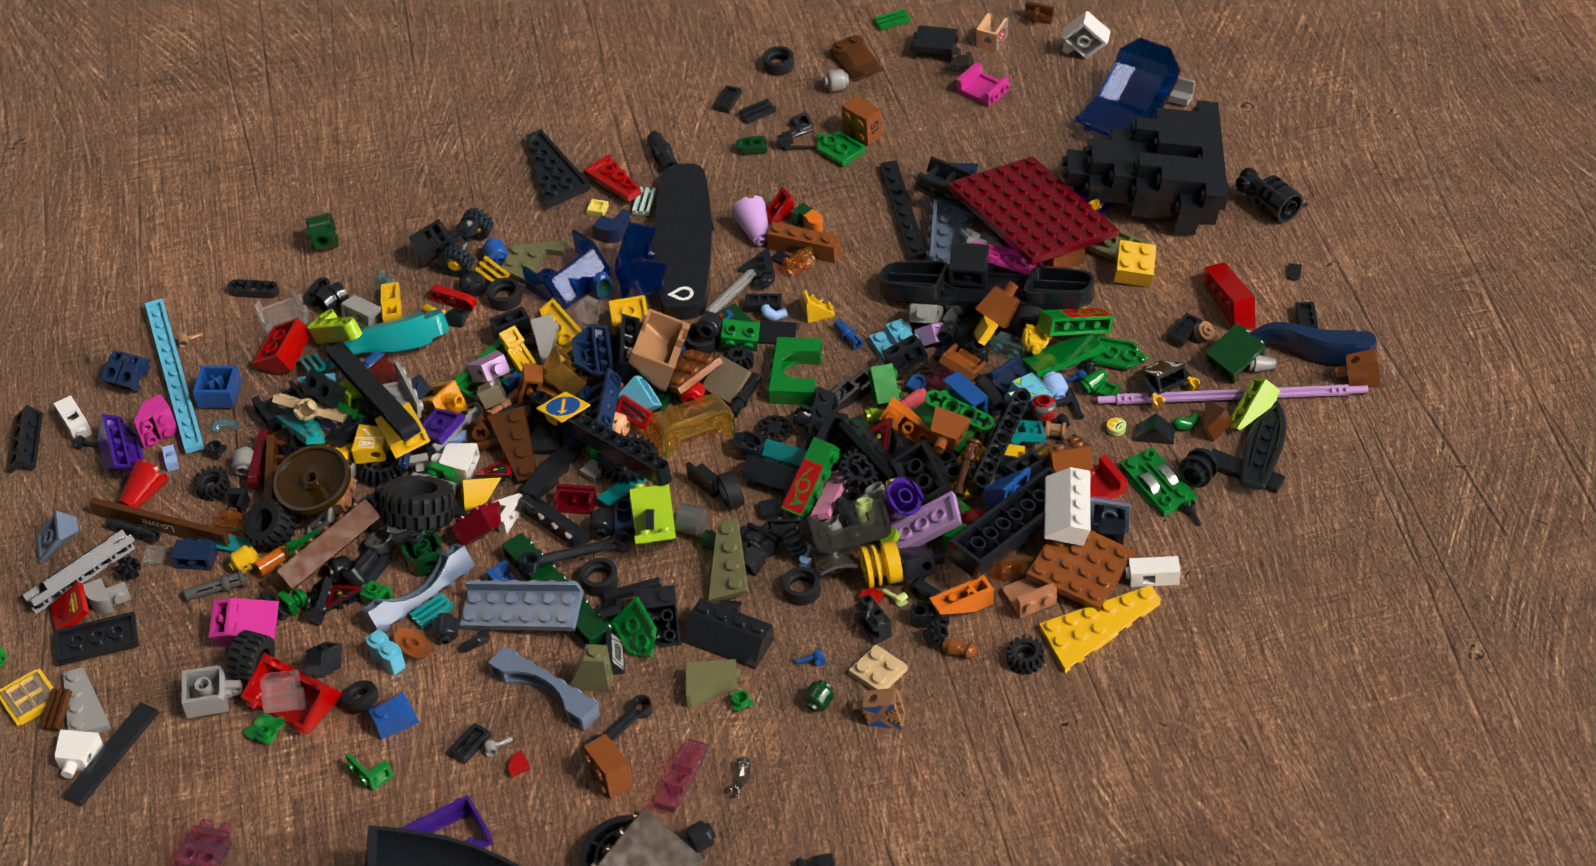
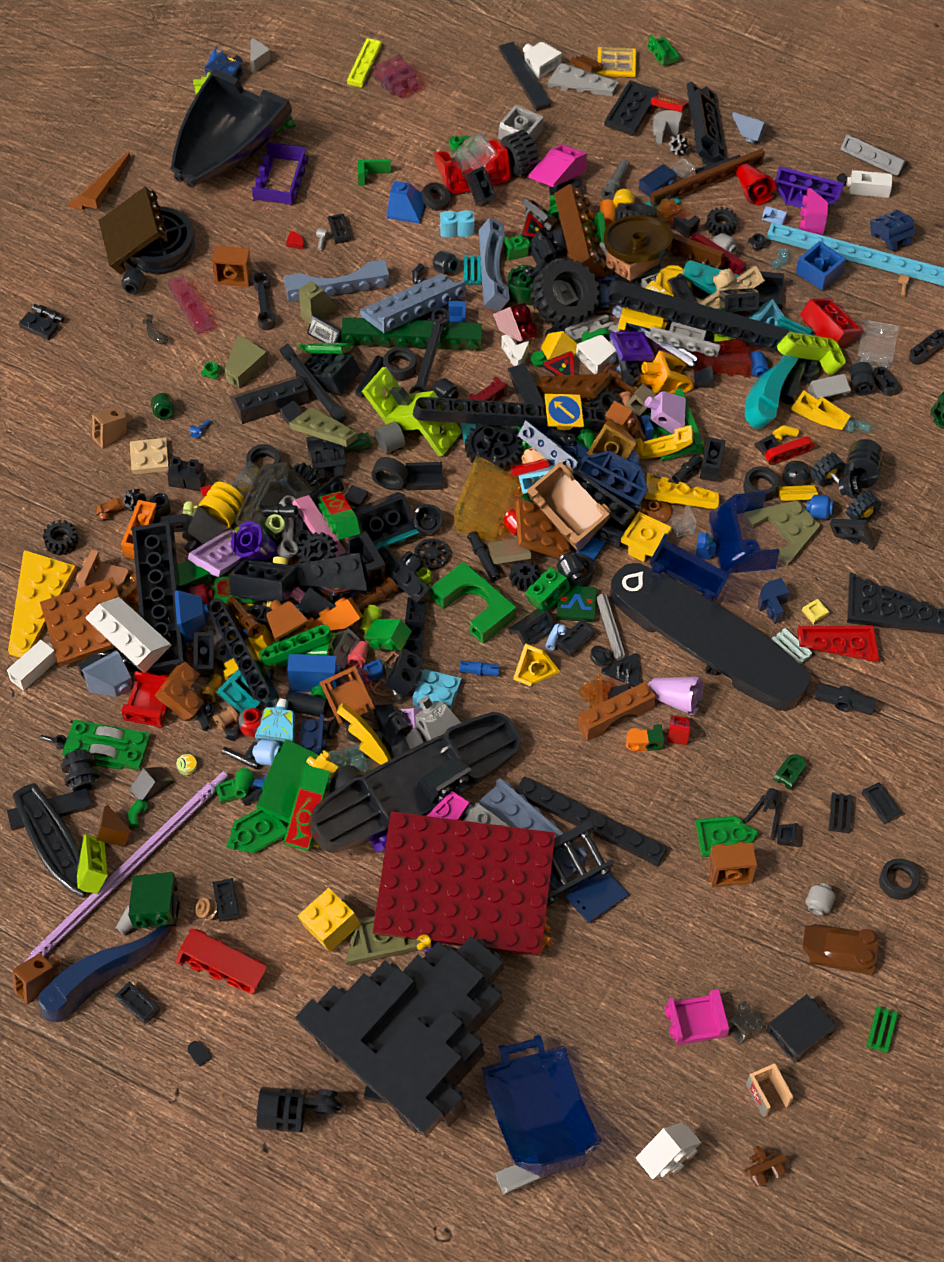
camera: 125 degrees right, 10 degrees up
(412, 642) = (447, 232): dark orange dish -> none
(498, 494) = (538, 358): none -> green plate
(501, 214) = (853, 531): none -> black wing
(545, 335) = (671, 466): light grey slope -> none
(555, 521) = (478, 373): black fence -> none
(611, 607) = (360, 347): black tile -> none
(687, 606) = (333, 409): none -> black piece
(1000, 304) = (373, 757): dark orange torso -> none
(1164, 376) = (188, 827): black torso -> none

